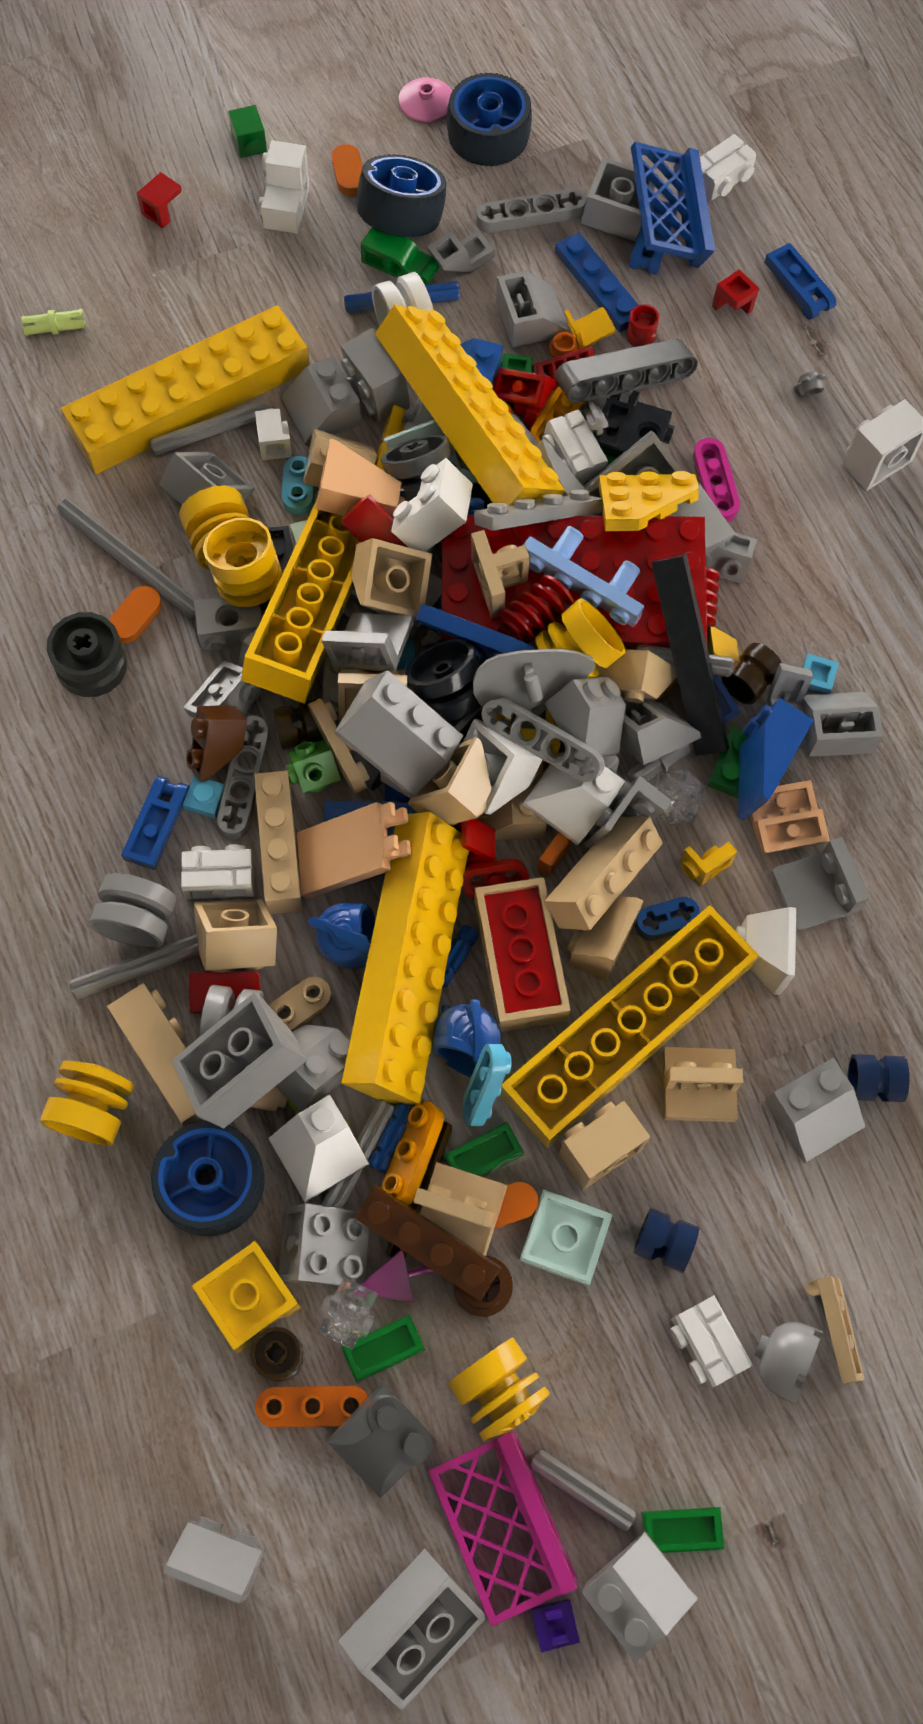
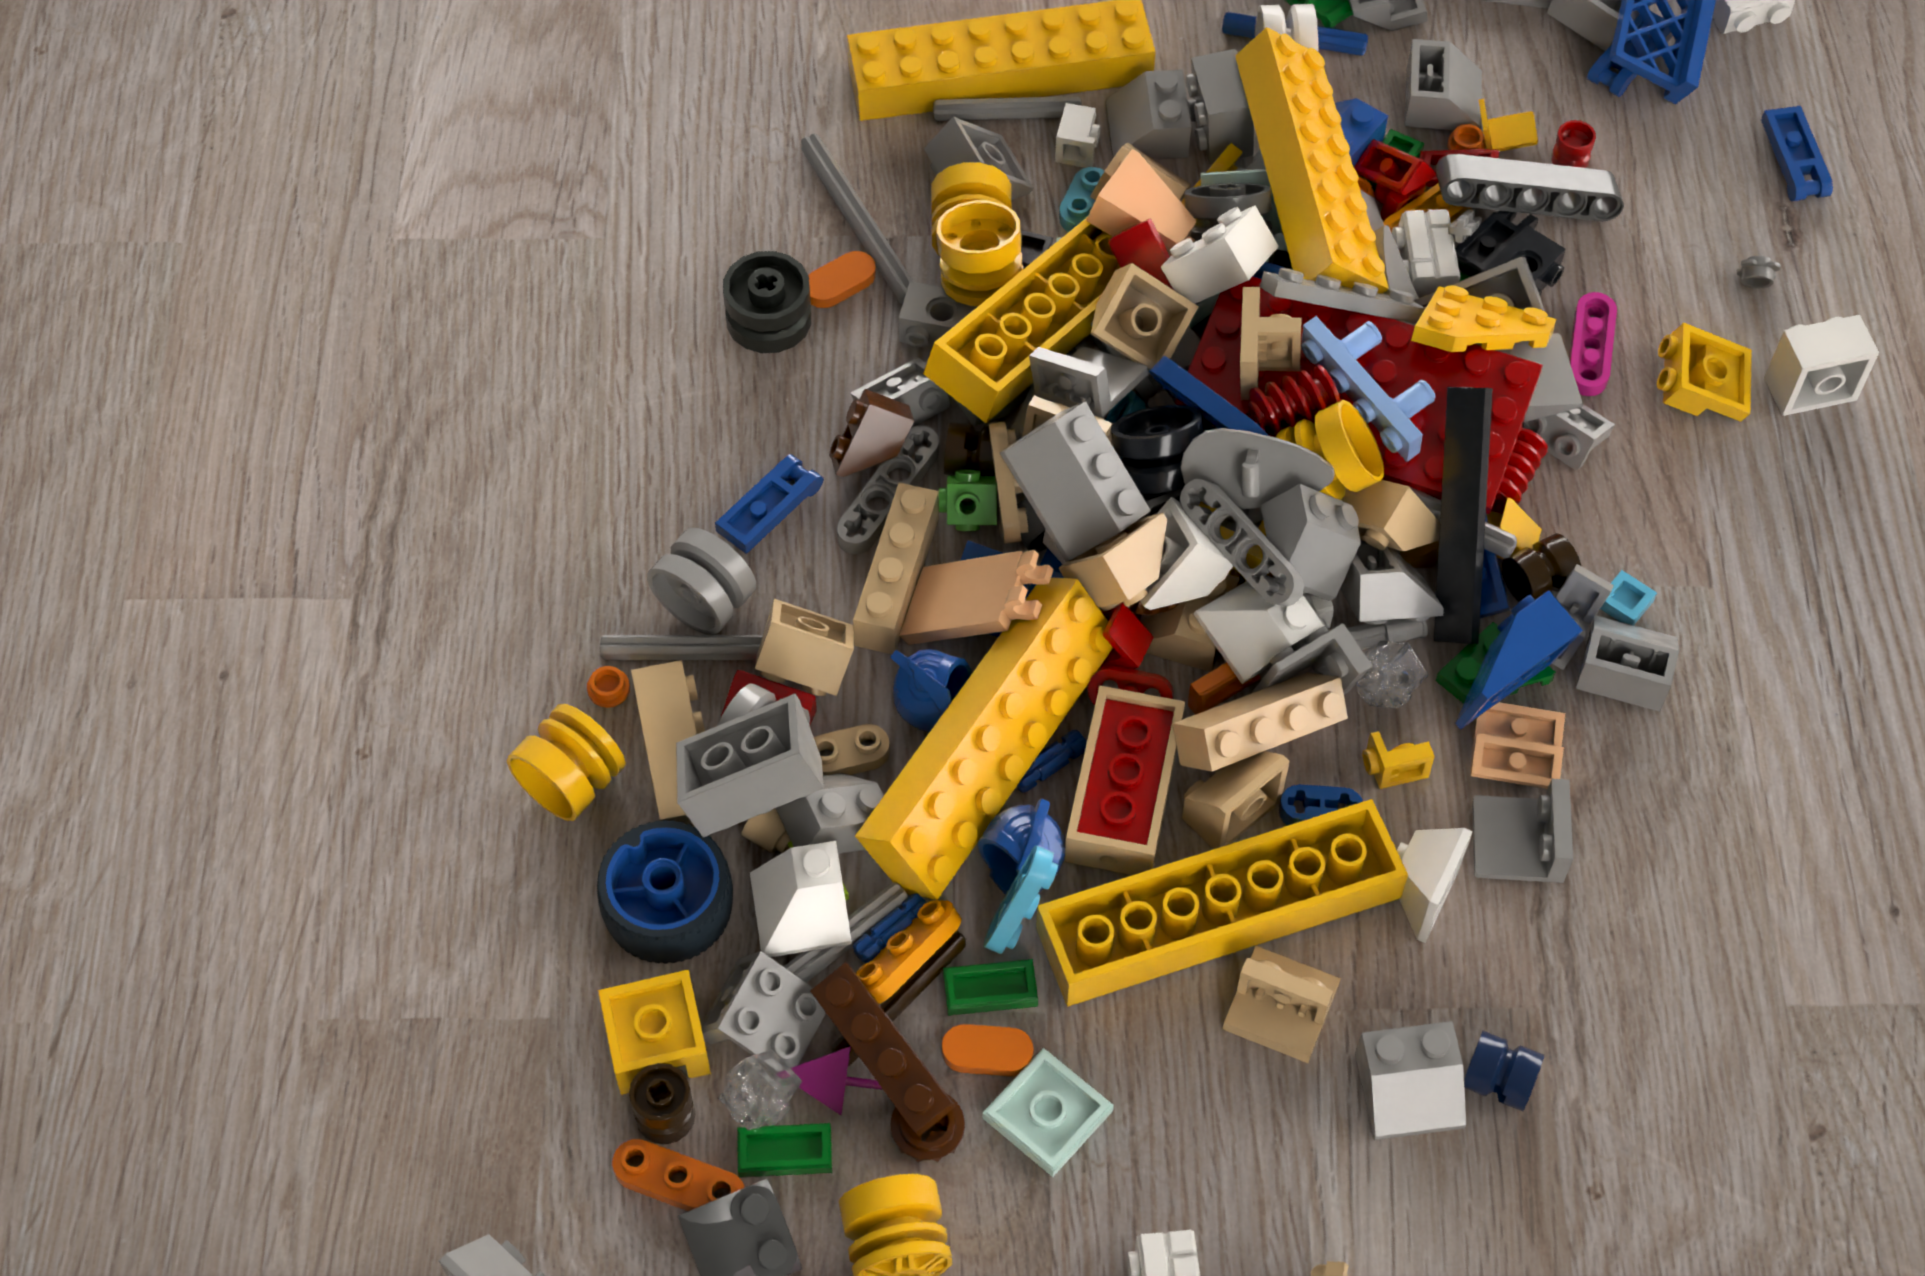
camera: 25 degrees right, 10 degrees down
(91, 1022) = (608, 687): none -> orange plate
(204, 797) = (833, 495): medium azure plate -> none
(217, 872) = (815, 578): white brick -> none
(462, 1204) = (940, 1024): tan bracket -> none
(596, 279) = (1539, 79): blue plate -> none
(603, 1144) = (1131, 1017): tan brick -> none
(666, 1240) = (1165, 1154): dark blue wheel -> none
(736, 291) = (1705, 139): red panel -> none
(805, 477) = (1705, 373): none -> yellow plate

